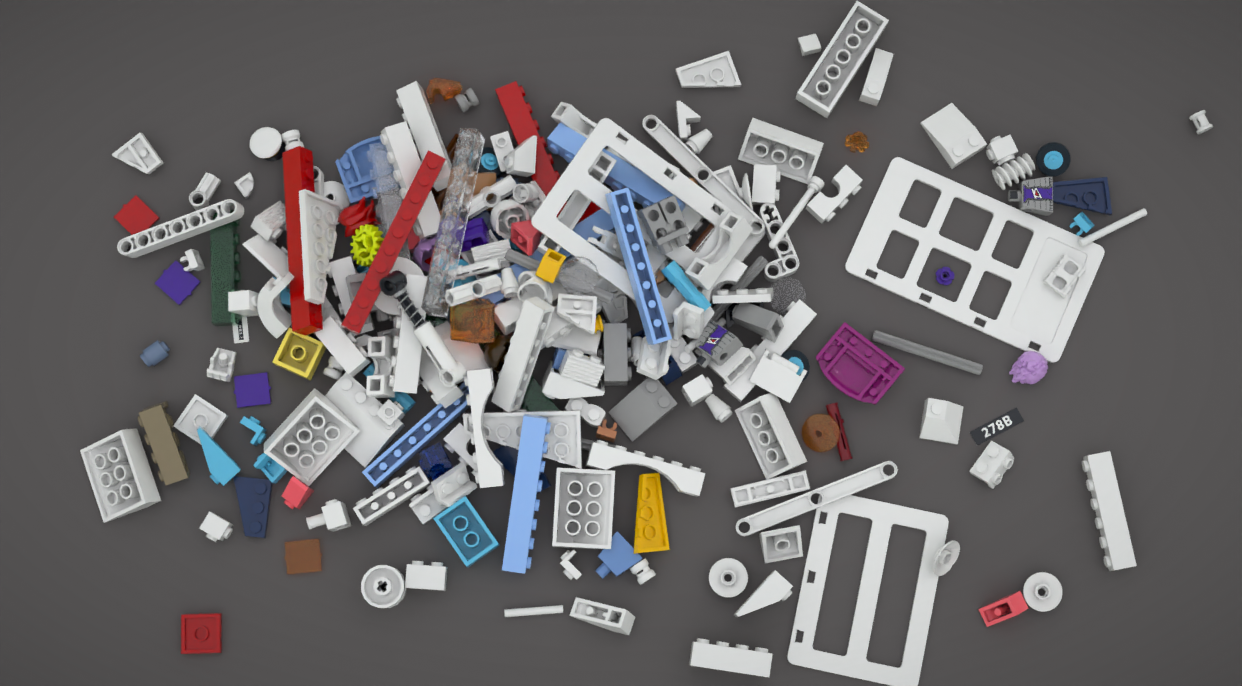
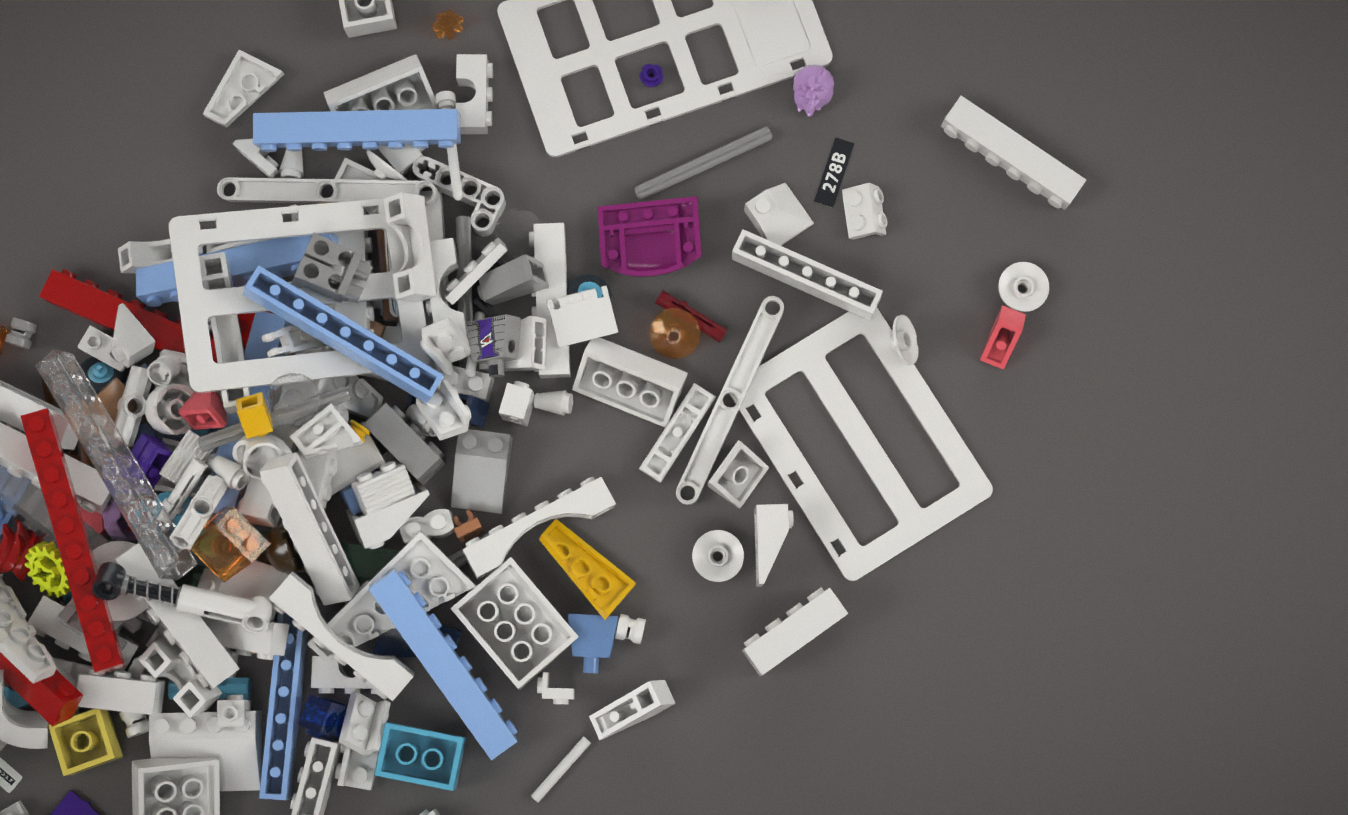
camera: 45 degrees left, 0 degrees up
(677, 277) = (393, 311): medium azure axle -> none
(752, 157) = (356, 128): none -> light blue brick
(925, 470) = (806, 275): none -> white brick

